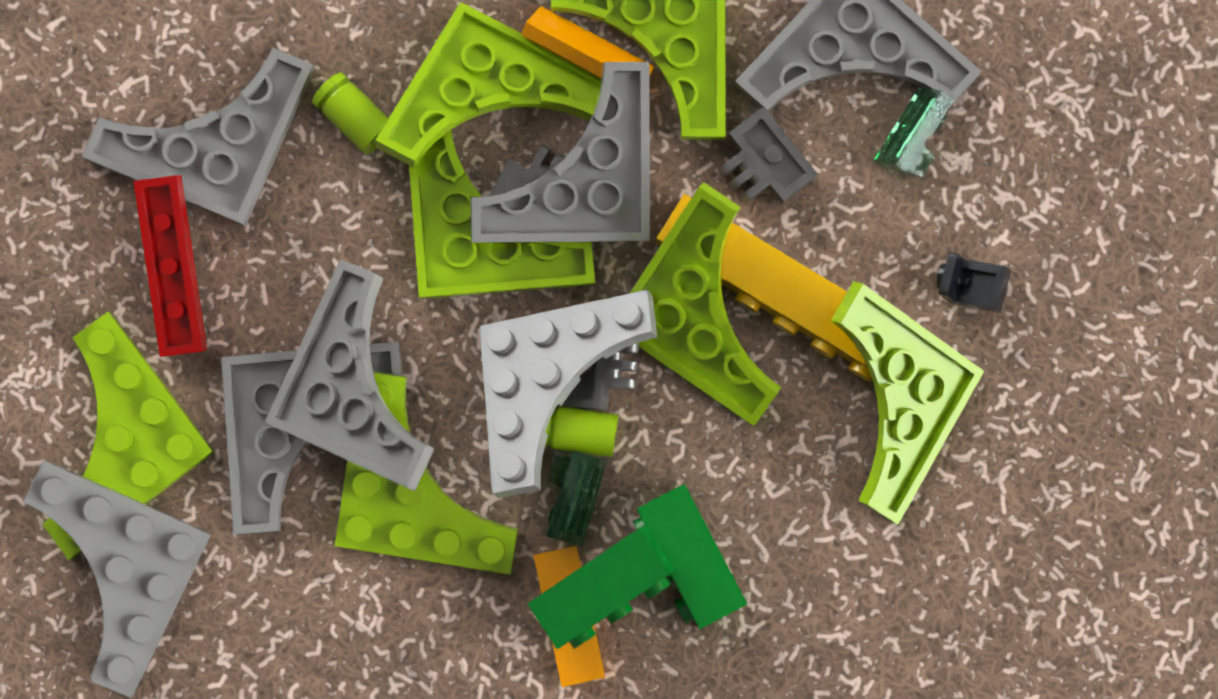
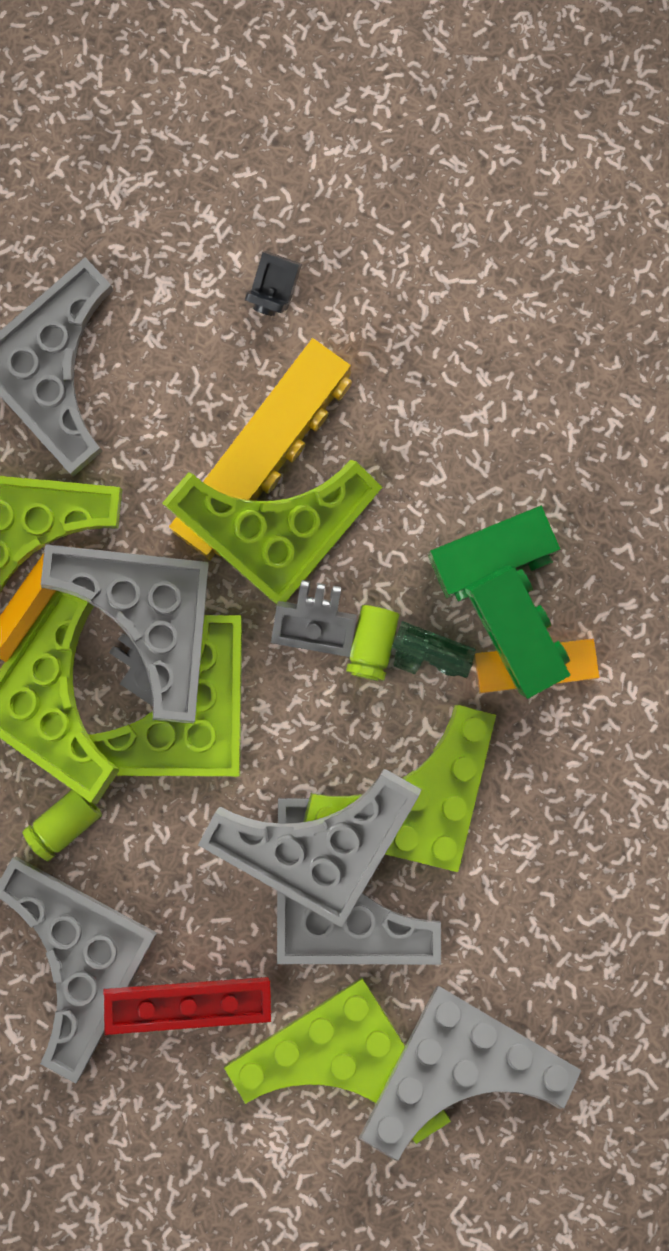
camera: 80 degrees left, 0 degrees up
(534, 367) = (312, 674): plate -> none
(766, 159) = (144, 452): flat silver hinge -> none
(905, 145) = (125, 317): clear green hinge -> none
(918, 393) = (367, 339): plate -> none

